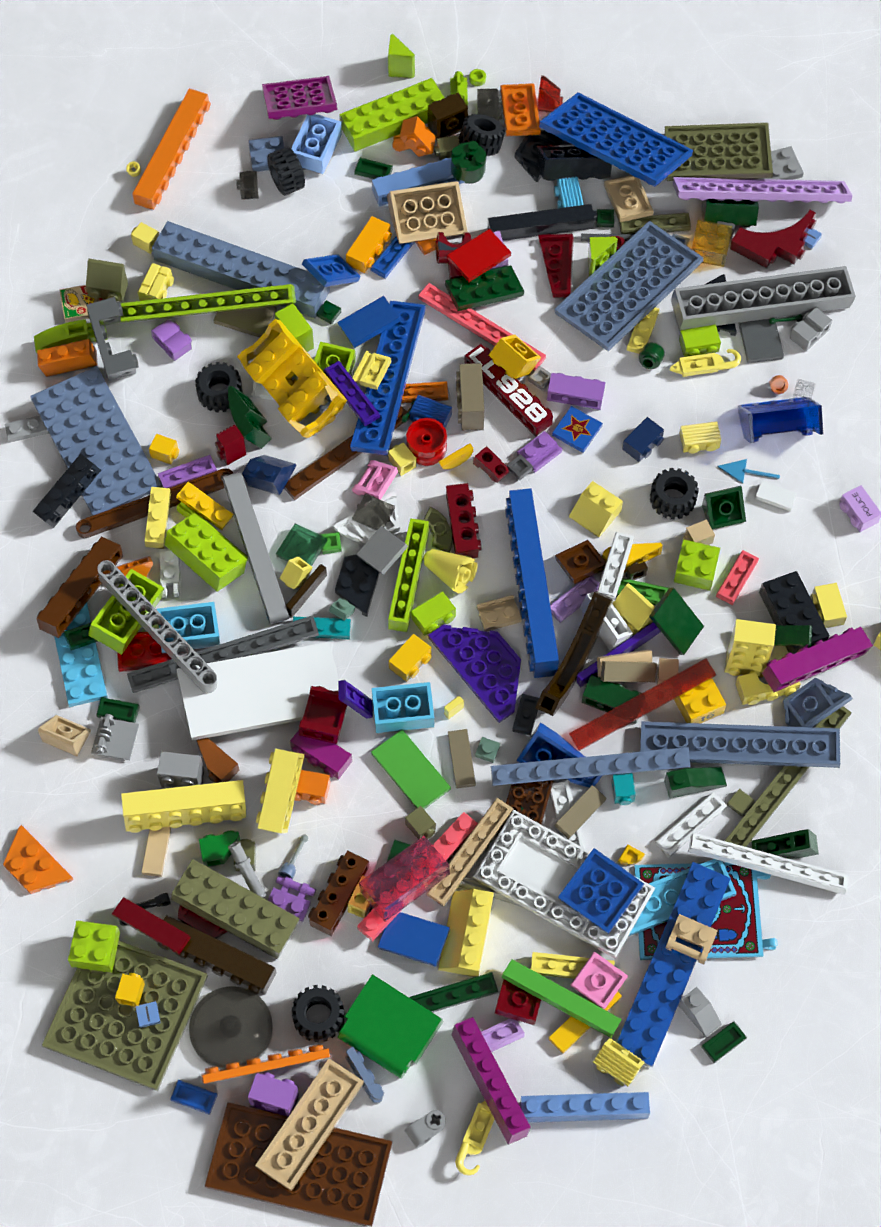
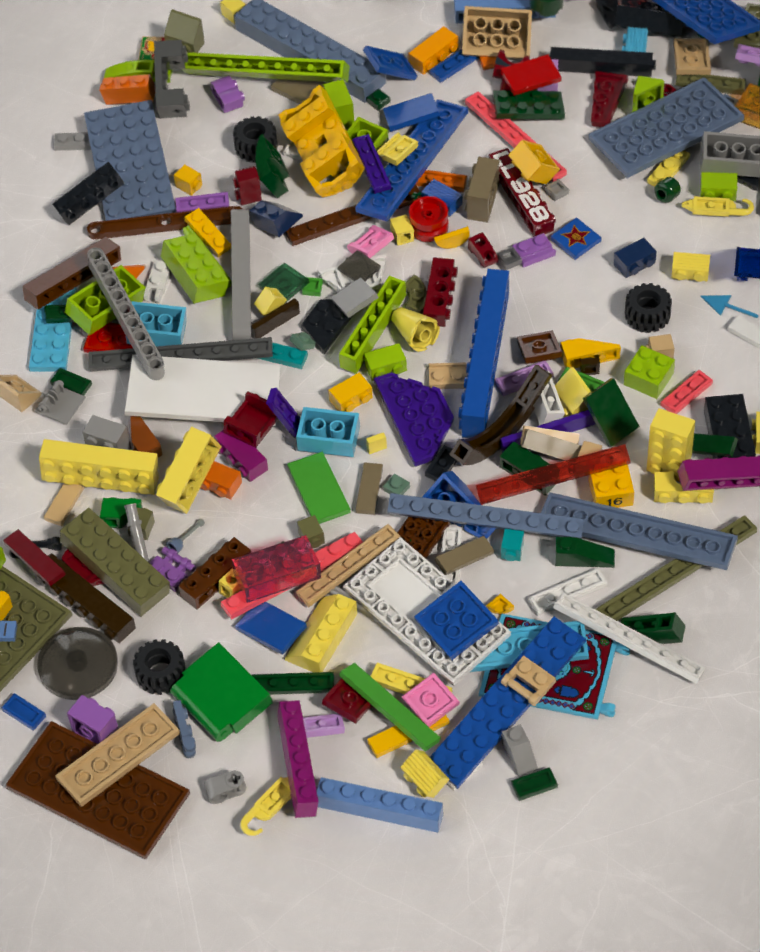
camera: 20 degrees right, 10 degrees down
(155, 283) = (230, 43): light yellow brick -> none
(157, 517) = (161, 230): light yellow brick -> none
(255, 1065) = (102, 694): orange plate -> none
(576, 391) = (585, 205): medium lavender brick -> none
(596, 509) = (569, 306): light yellow slope -> none
(605, 218) = (664, 69): dark green tile -> none
(615, 565) = (569, 352): white tile -> none
(724, 507) = (693, 328): dark green slope -> none
(740, 802) = (621, 582): olive tile -> none
(813, 703) = (722, 510): sand blue wing -> none

